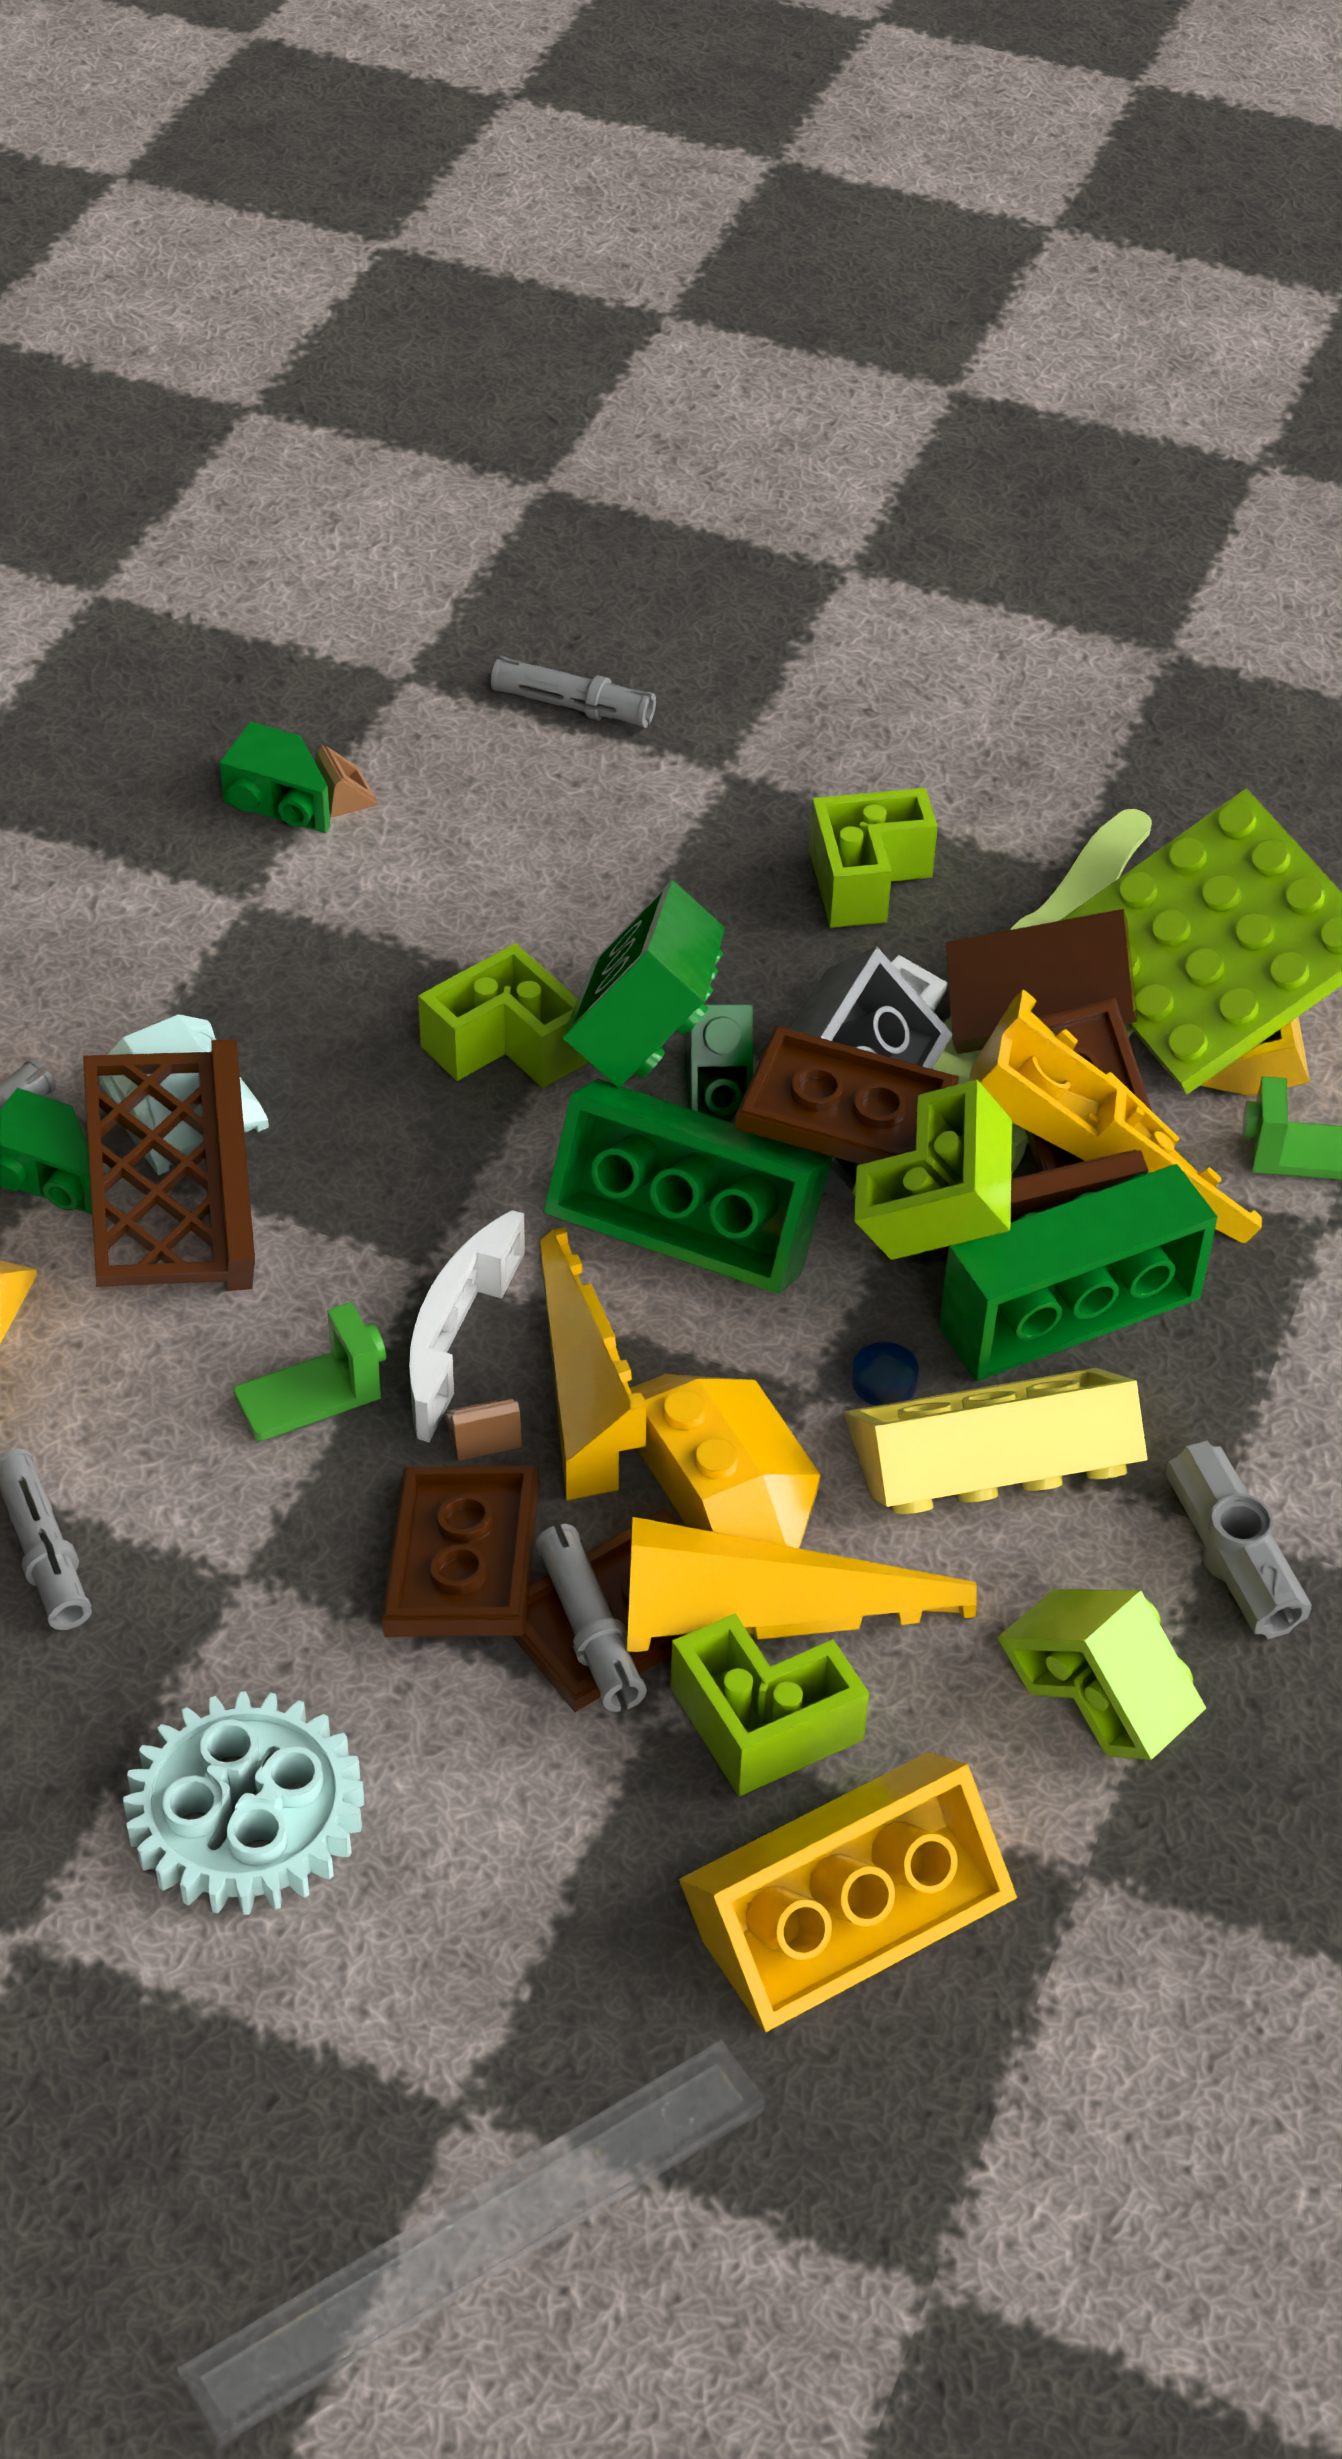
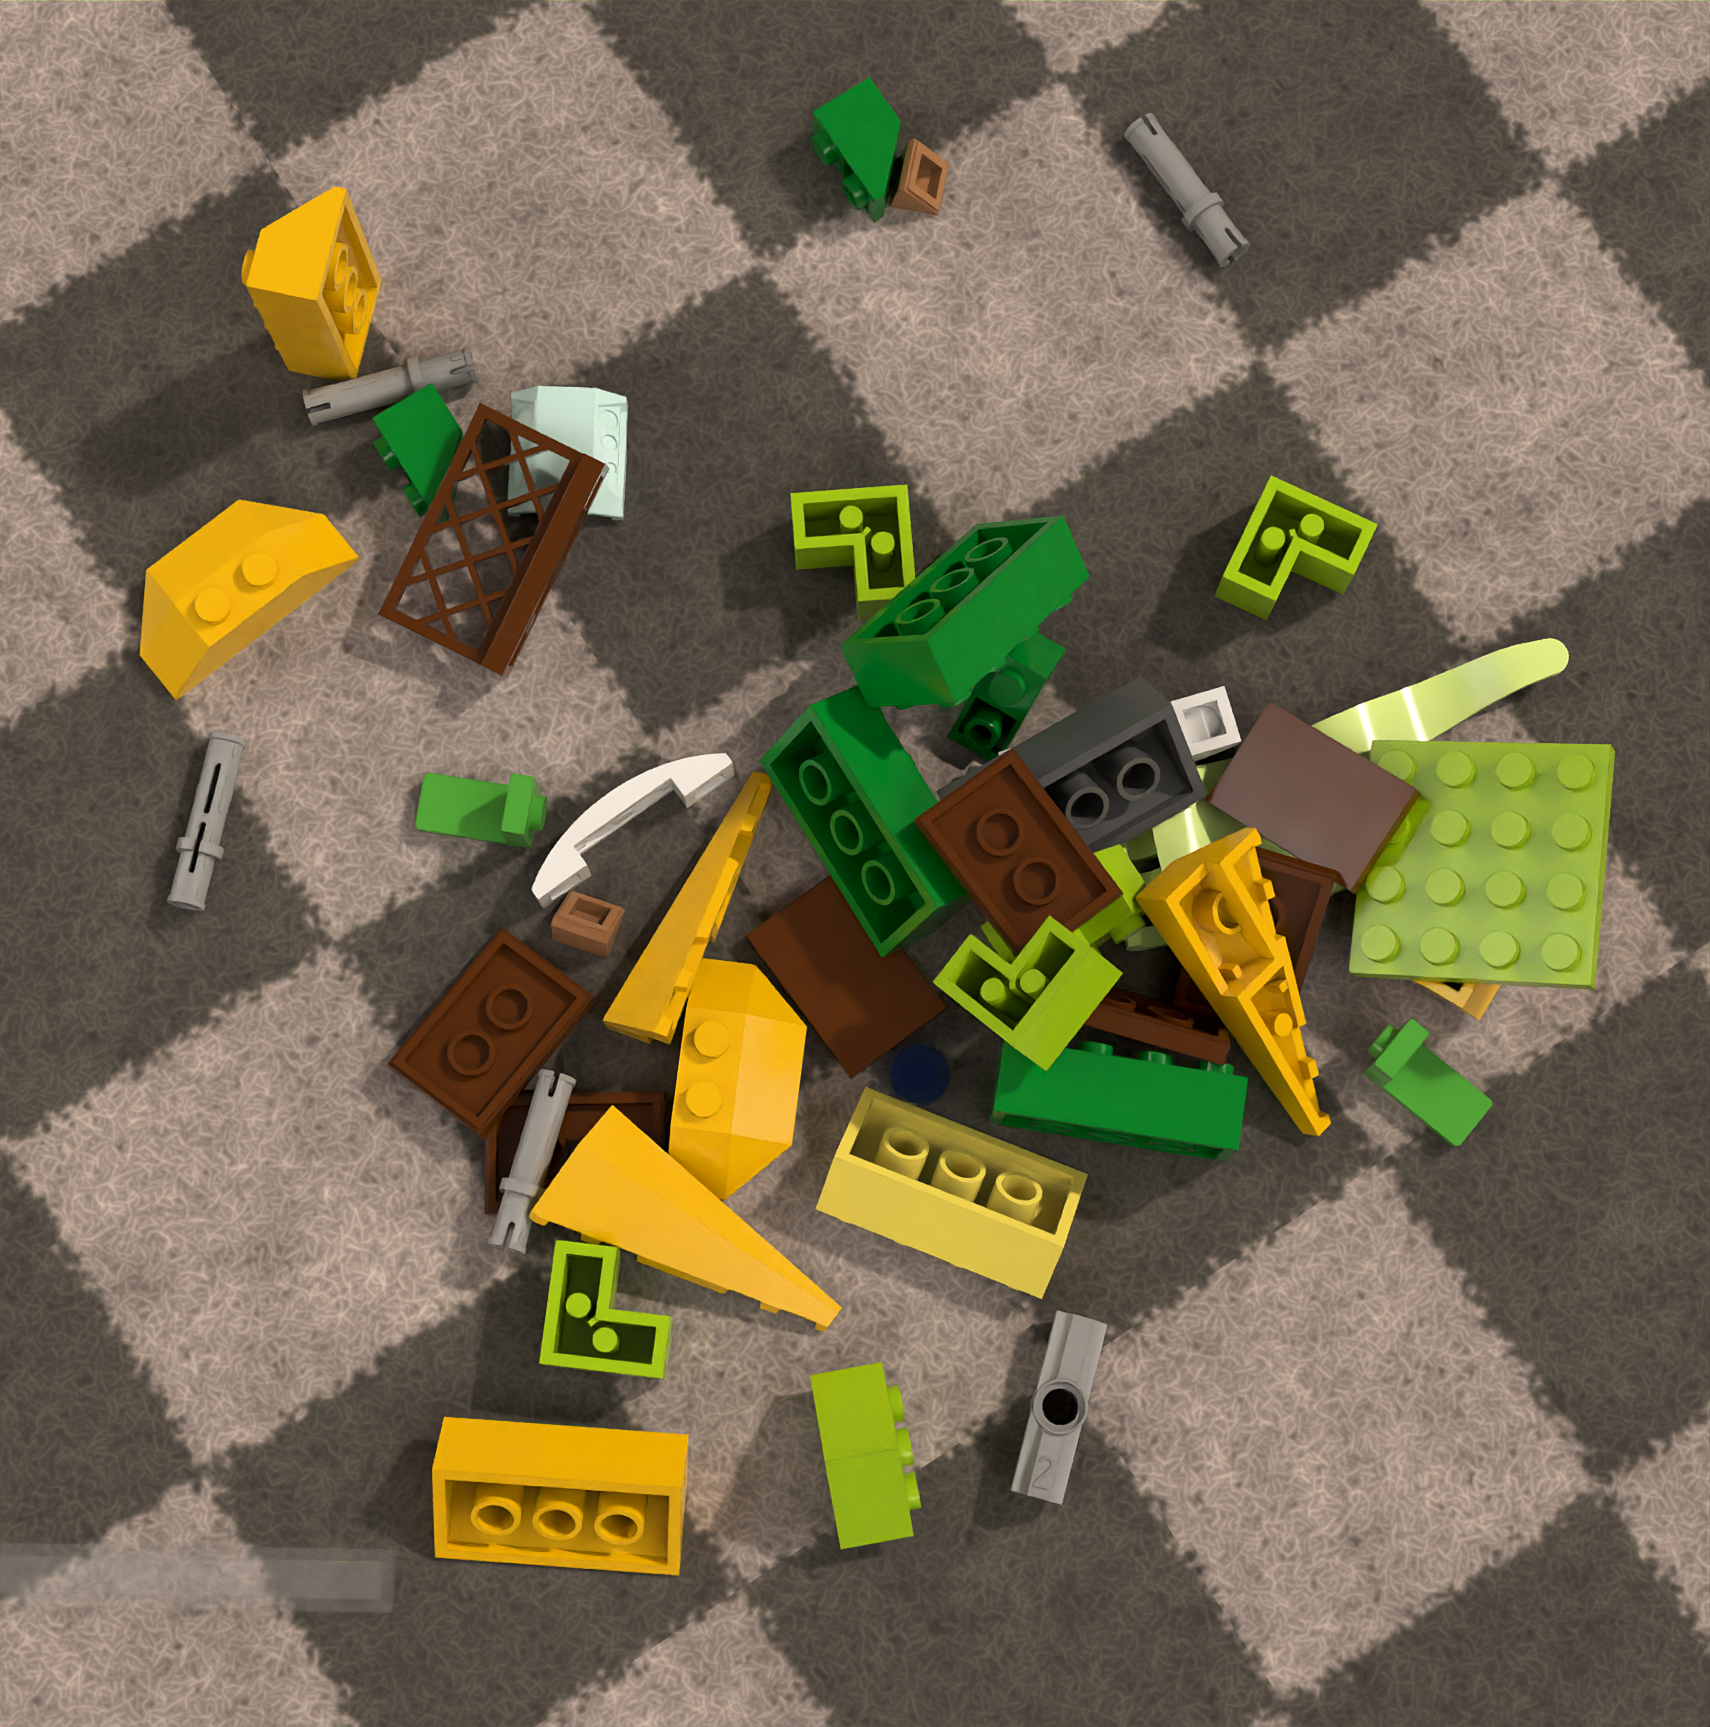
camera: 35 degrees right, 30 degrees up
(191, 1778) = (181, 1099): light aqua gear -> none
(730, 1329) = (840, 981): none -> reddish brown tile

